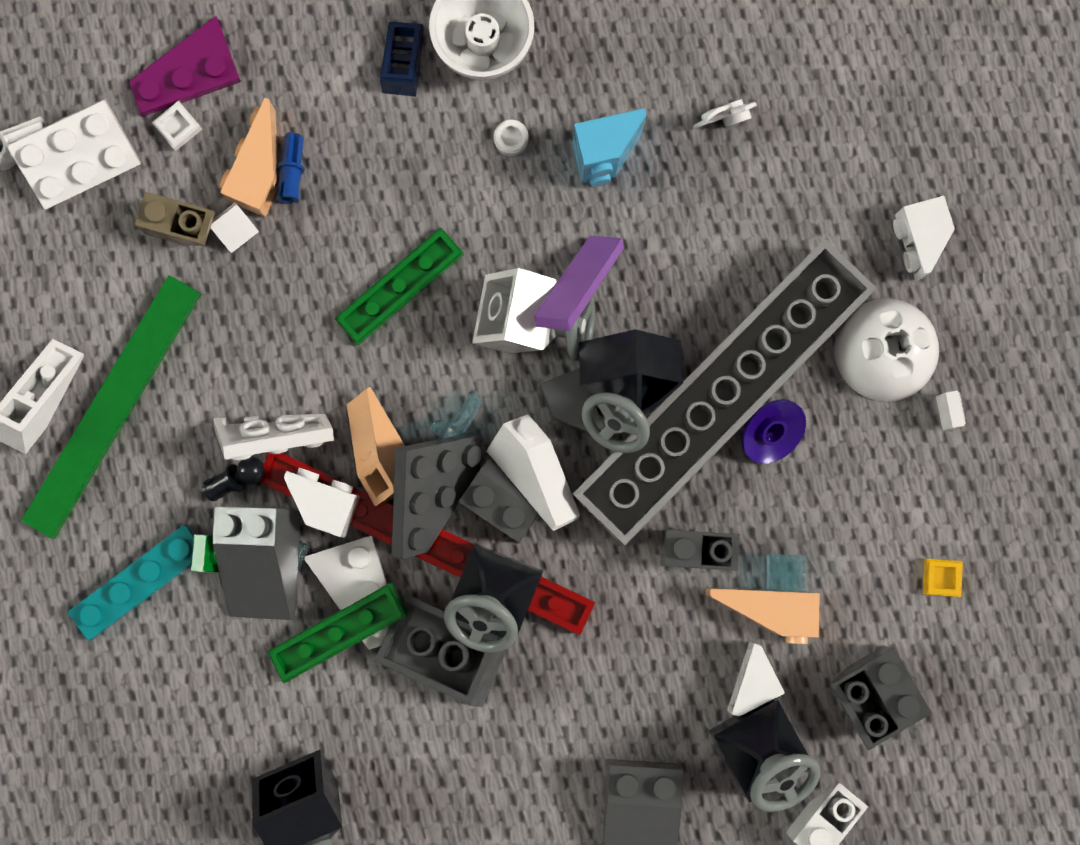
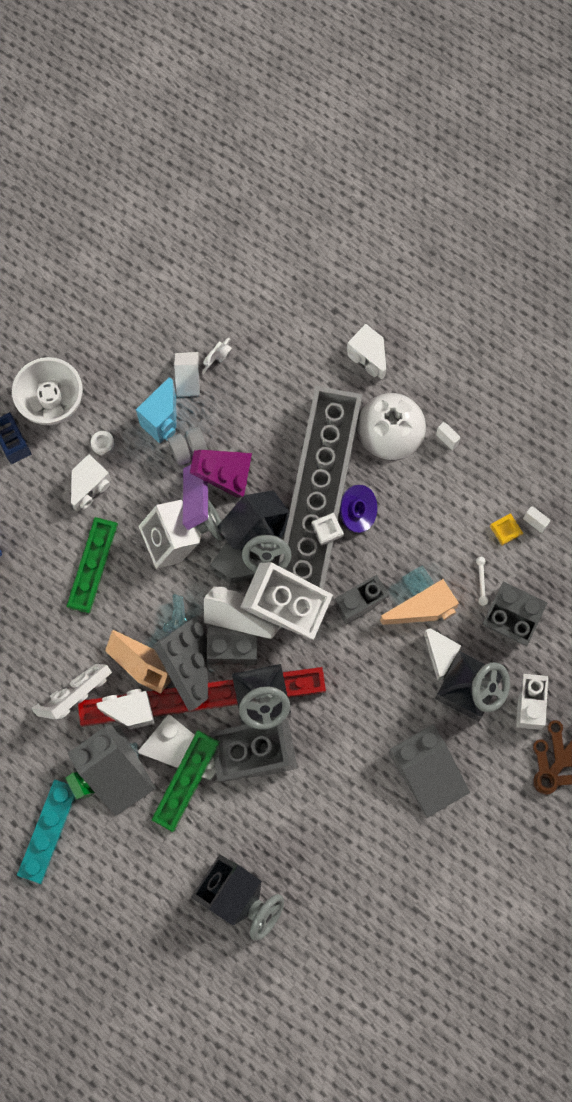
camera: 30 degrees left, 10 degrees down
(234, 478) = (73, 720): black pin -> none
(458, 176) = (87, 481): none -> white slope
(602, 496) = (286, 600): none -> white slope
(613, 211) = (184, 446): none -> light grey wheel
(634, 271) = (222, 469): none -> magenta wing
(673, 115) = (187, 374): none -> white slope
(715, 436) = (327, 529): none -> white tile
(852, 648) = (482, 600): none -> white hinge
(990, 592) = (536, 519): none -> white tile

